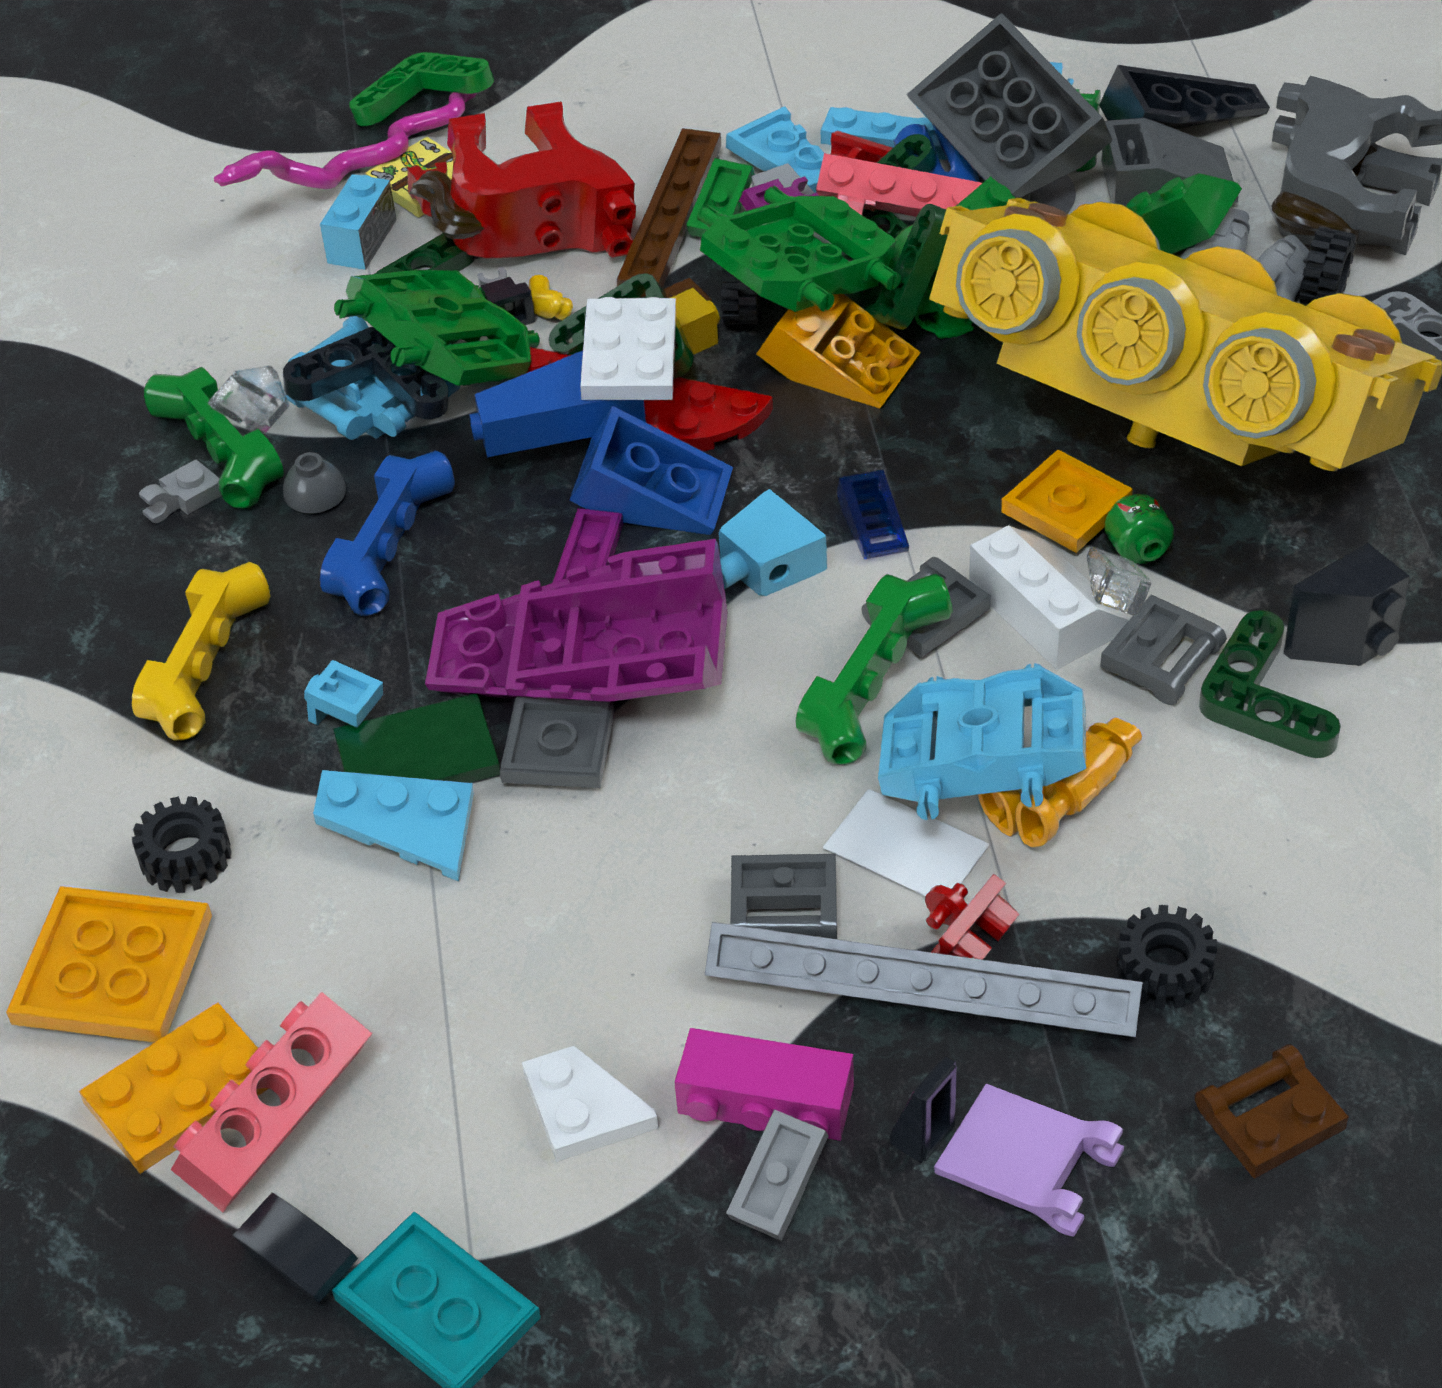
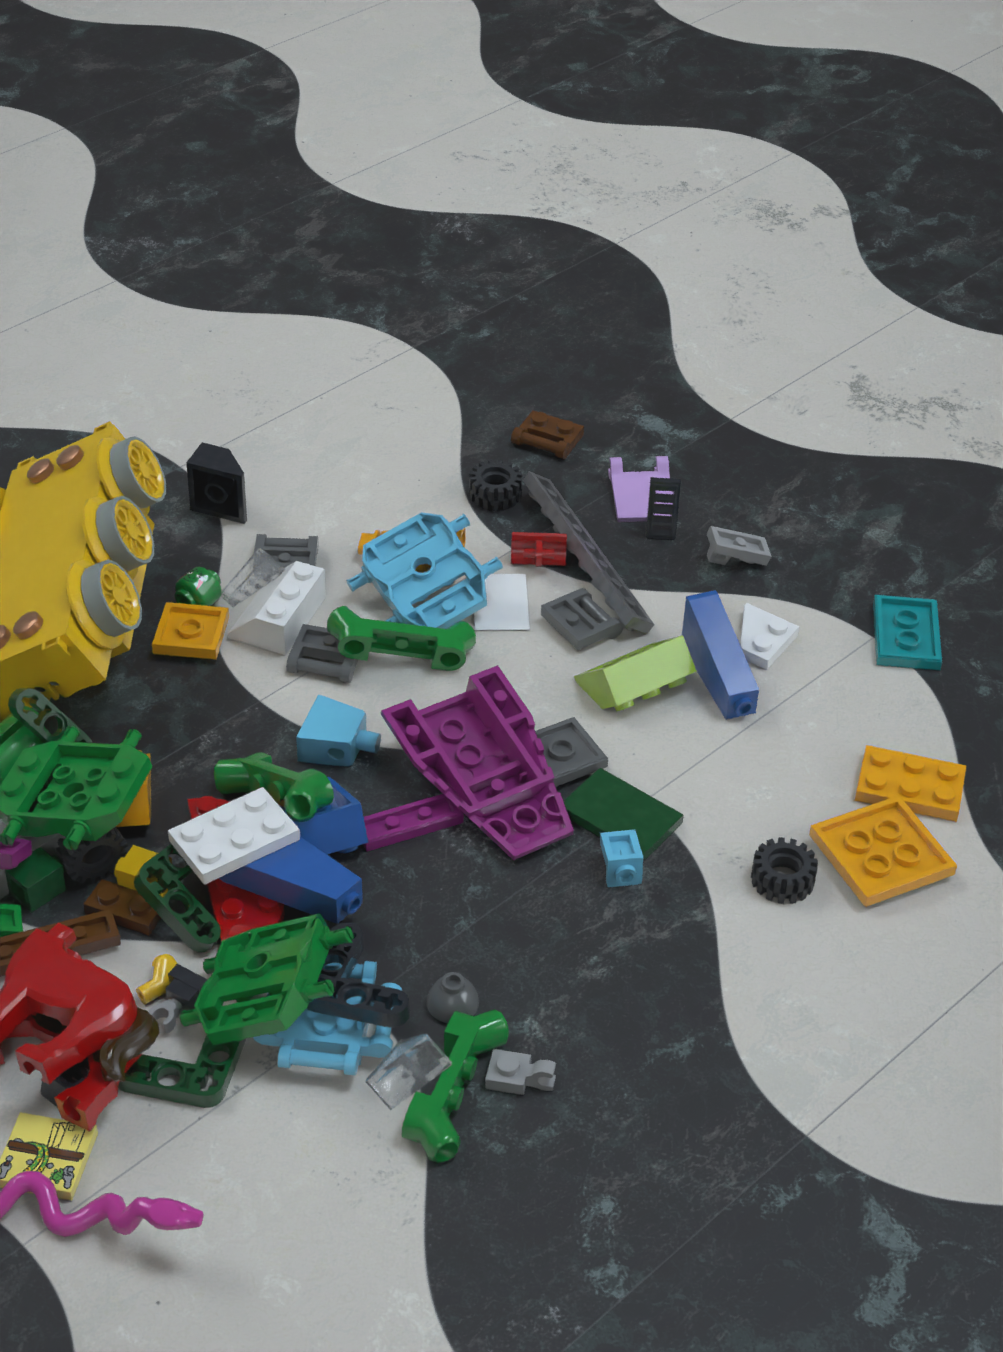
camera: 130 degrees left, 5 degrees down
(168, 689) = (604, 970): yellow plate -> none
(223, 1170) = (888, 724): coral brick -> none
(295, 1247) = (940, 683): black slope -> none
(355, 566) = (421, 936): blue plate -> none
(358, 221) = (149, 1142): medium azure brick -> none
(407, 815) = (676, 785): medium azure wing -> none
(561, 982) = (719, 655): none -> slope
(624, 888) = (638, 674): none -> lime slope
(642, 424) = (297, 792): none -> green plate
(750, 1077) = (694, 568): dark pink brick -> none
(864, 487) = (261, 711): clear blue slope -> none
(1245, 688) = (245, 527): dark green beam -> none

